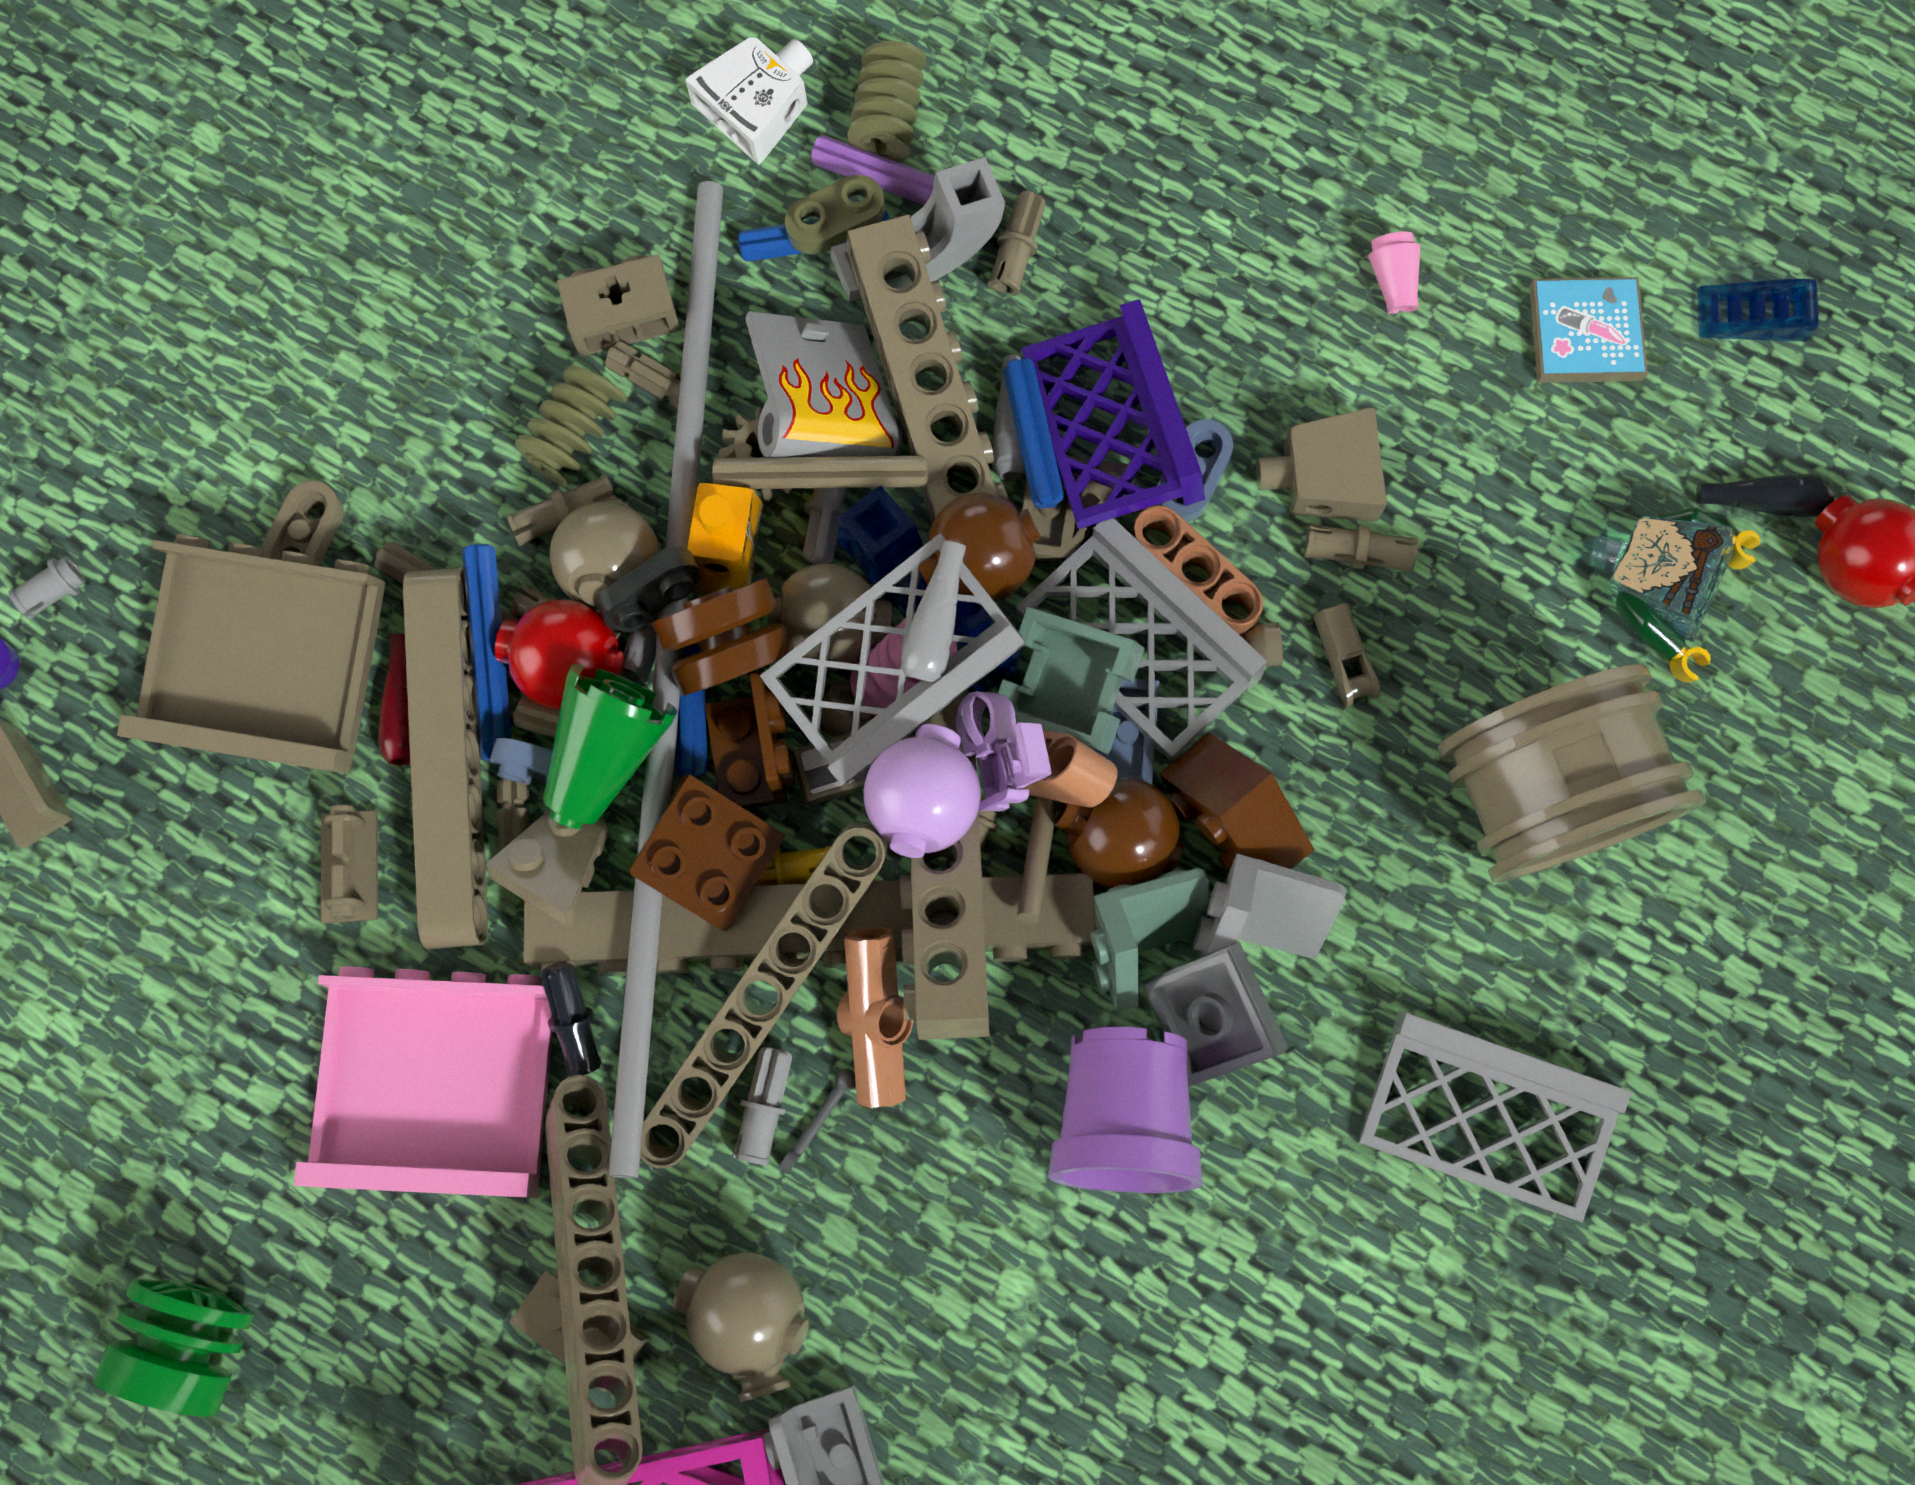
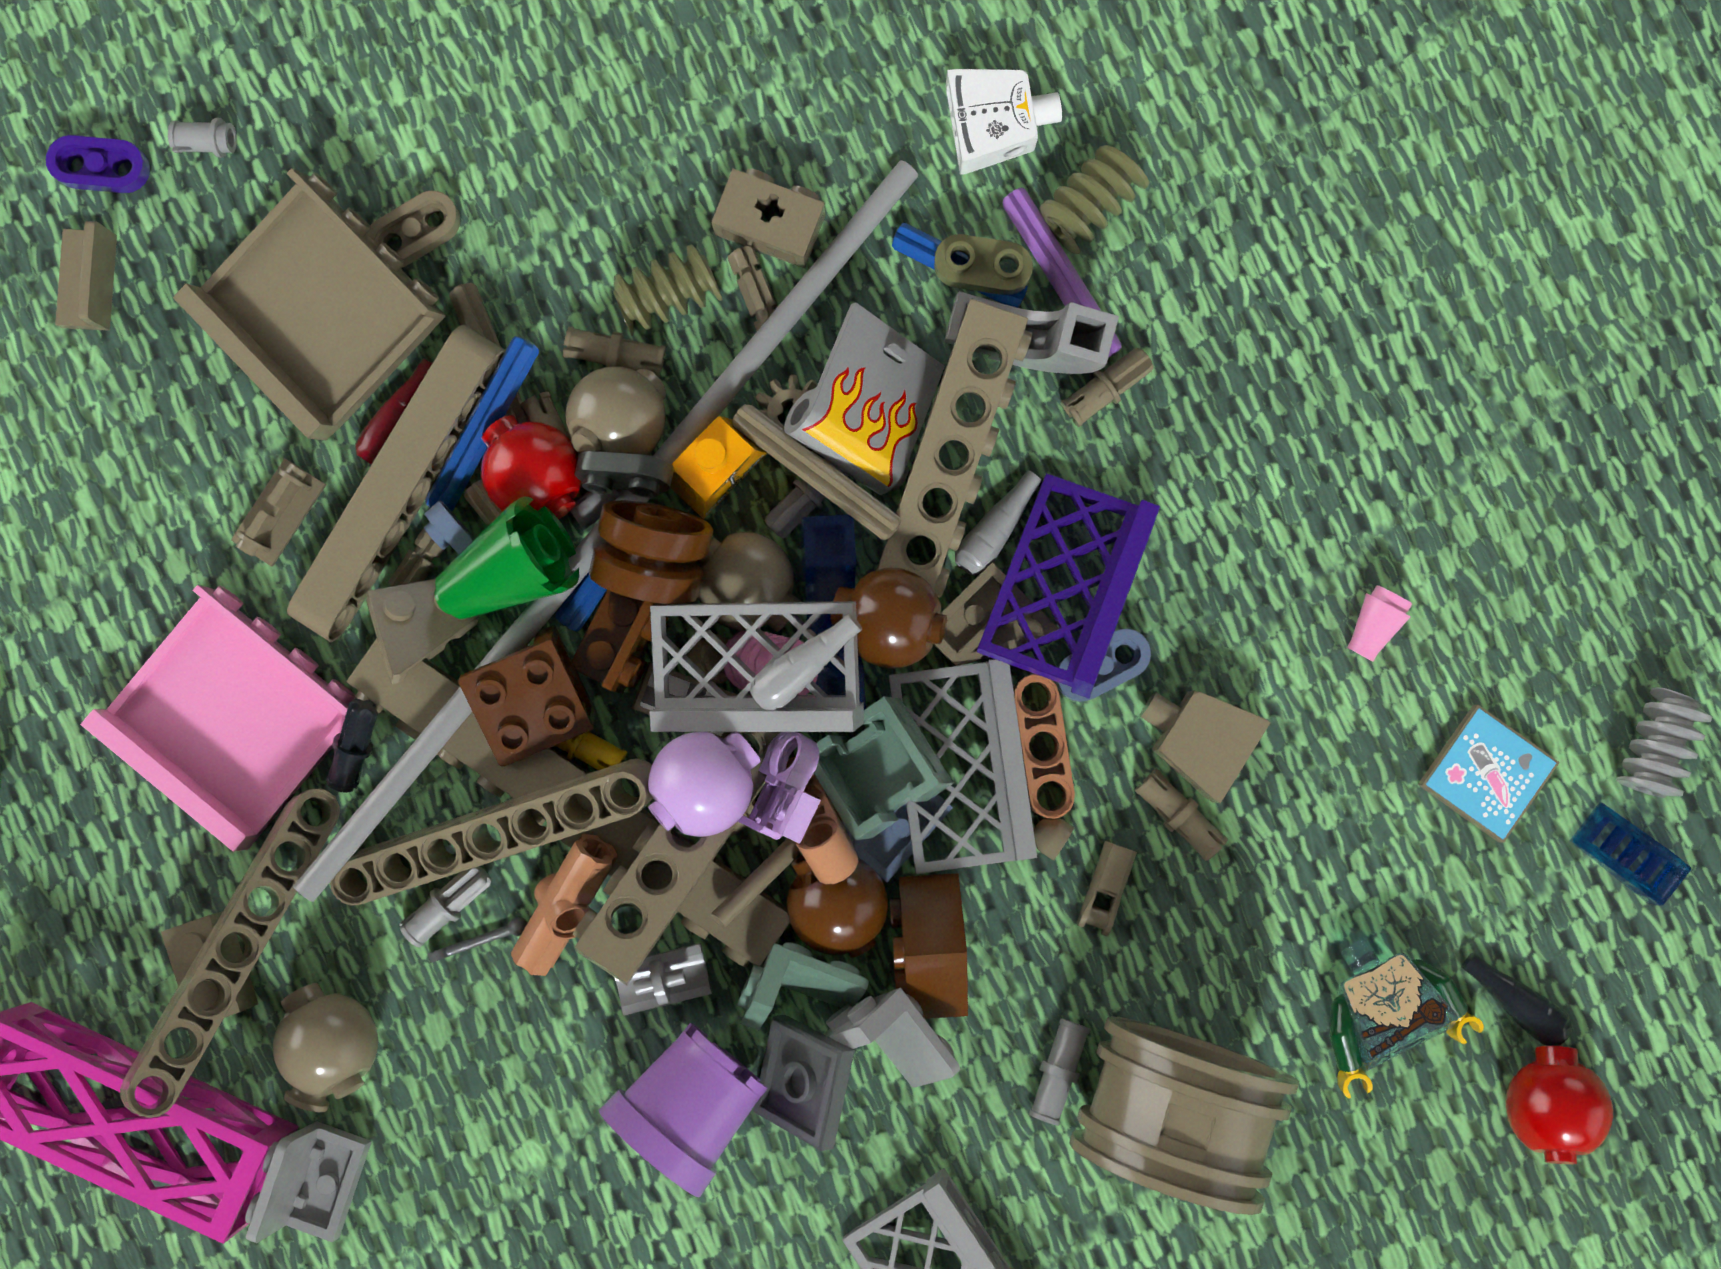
camera: 35 degrees right, 10 degrees up
(1017, 1021) = (666, 980): none -> light grey hips
(1033, 433) = (1000, 552): blue axle -> none
(1432, 843) = (1059, 1072): none -> light grey pin
(1708, 199) = (1664, 743): none -> light grey piece

